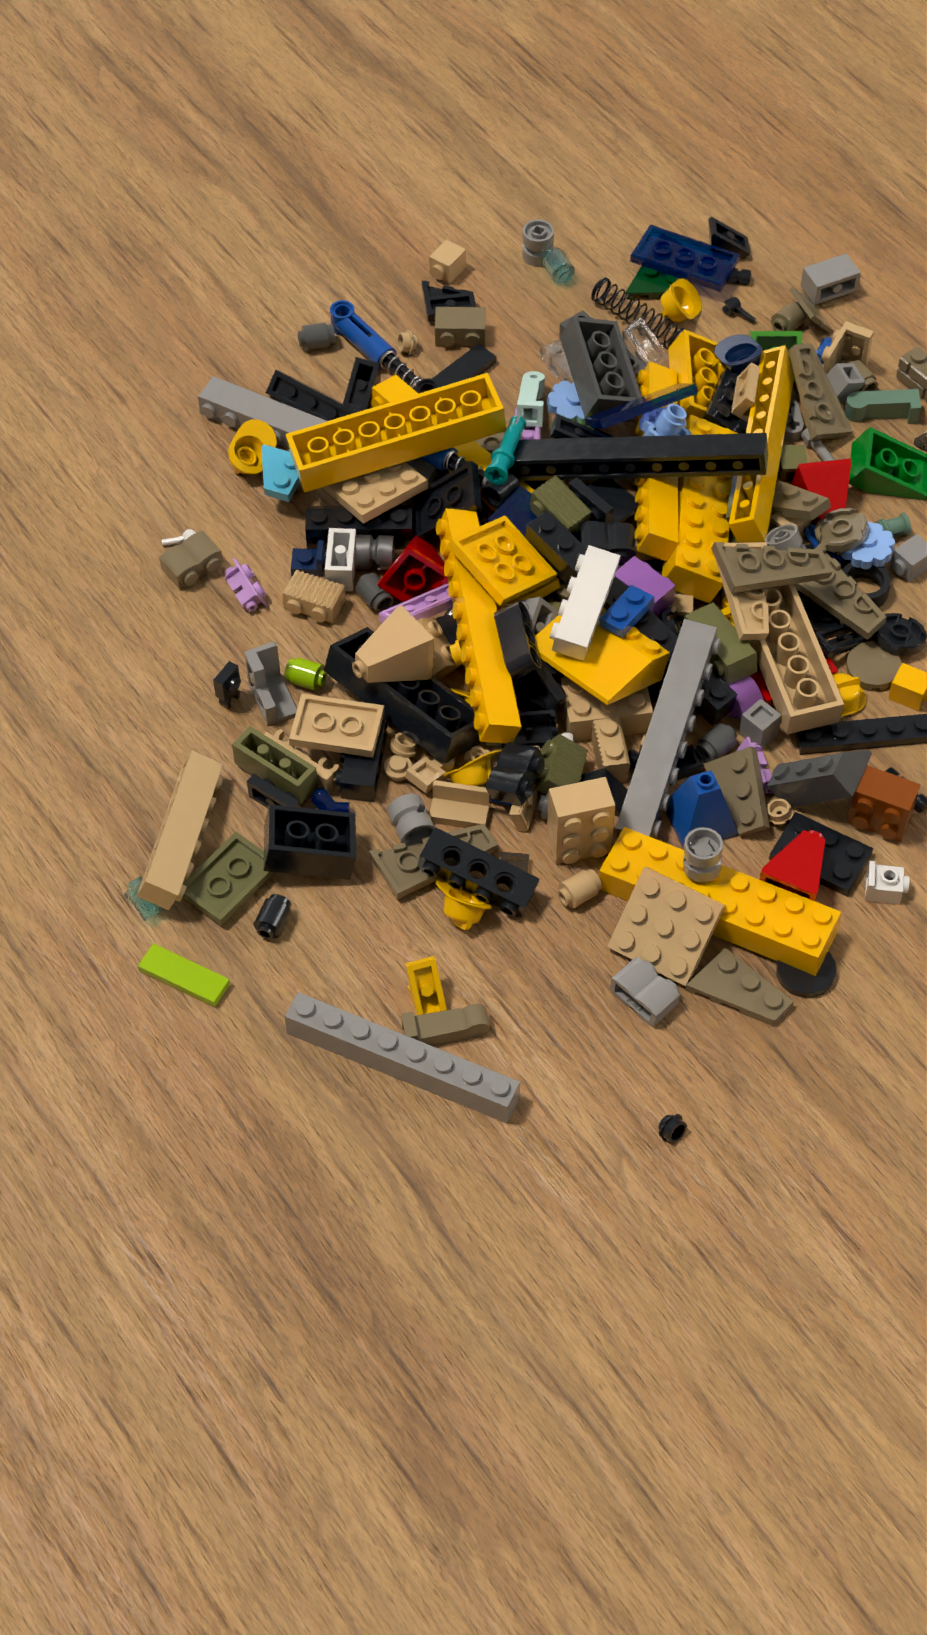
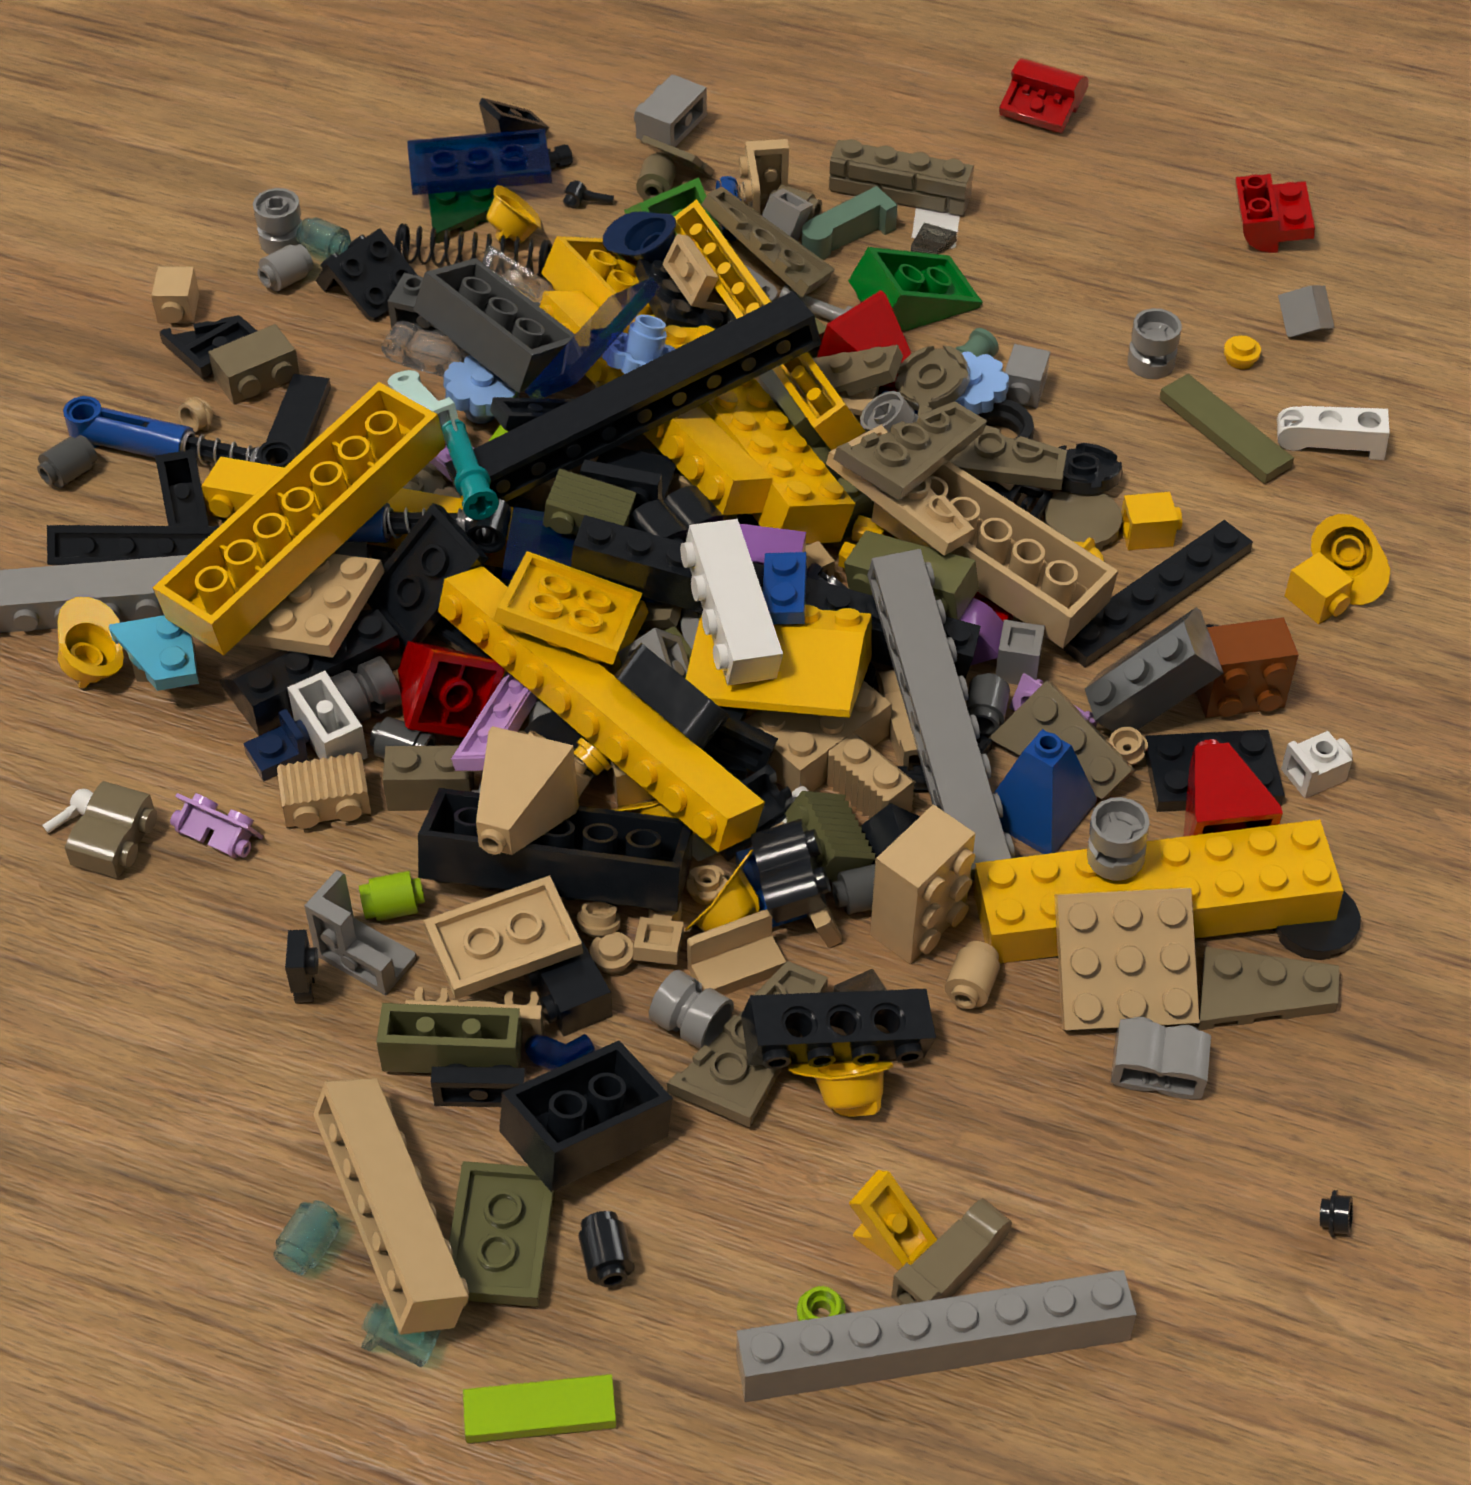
camera: 35 degrees left, 5 degrees down
(134, 825) = (306, 1237): none -> clear light blue brick
(359, 1004) = (817, 1298): none -> lime plate
(362, 611) = (417, 773): none -> dark tan brick
(522, 273) = (284, 267): none -> light grey brick
(566, 298) = (366, 272): none -> black bracket

